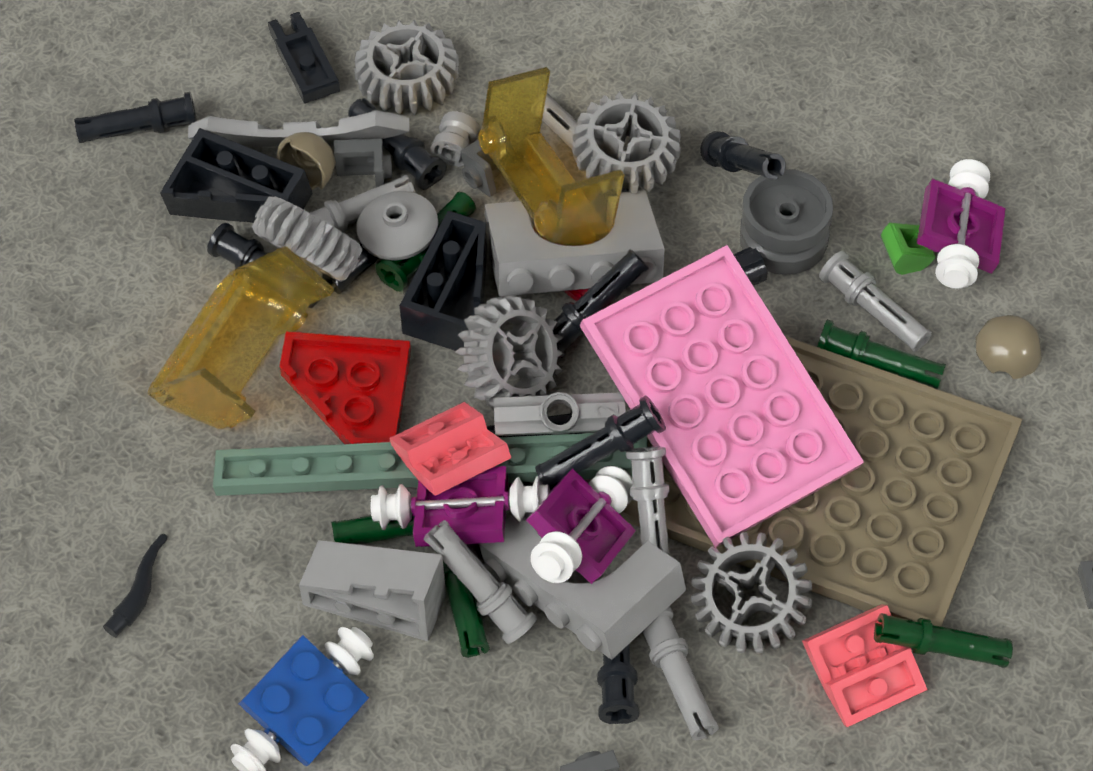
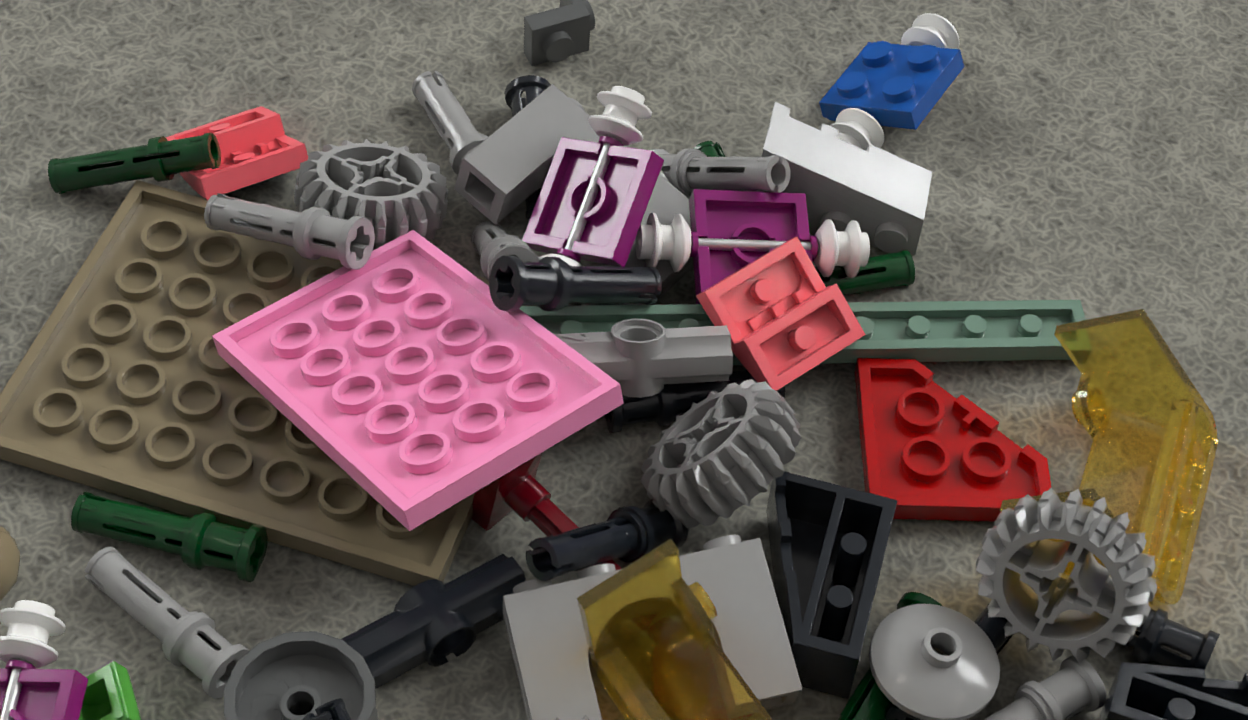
camera: 170 degrees right, 5 degrees down
(137, 598) = (1123, 197): black animal -> none
(794, 527) = (310, 232): none -> light grey pin

